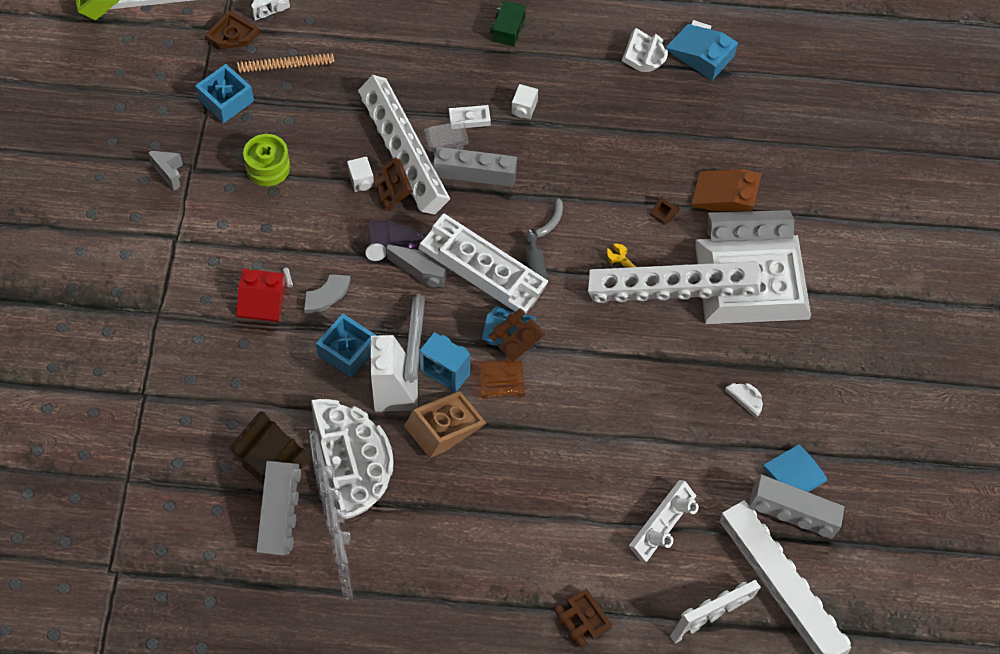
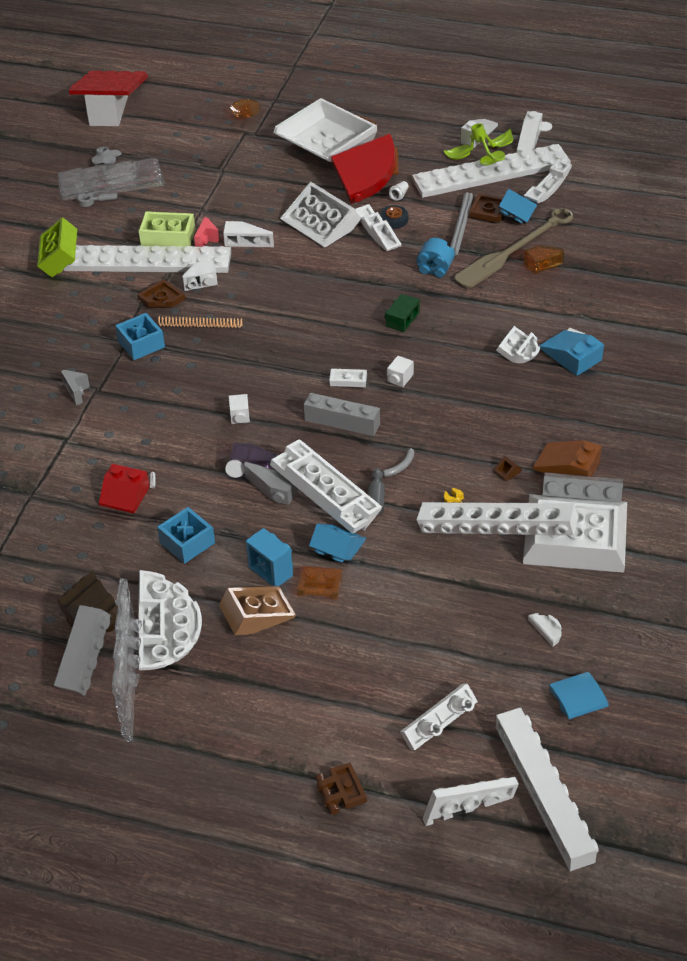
camera: 15 degrees right, 15 degrees down
(266, 160) = (160, 388): lime wheel -> none
(328, 294) = (177, 499): light grey tile -> none
(389, 386) = (215, 558): white slope -> none
(396, 181) = (264, 418): reddish brown plate -> none
(403, 144) = (282, 390): white brick -> none
(414, 338) = (247, 532): light grey axle -> none
(447, 135) = (323, 385): clear brick -> none
(521, 340) = (344, 547): reddish brown plate -> none
(796, 506) = (570, 720): light grey brick -> none

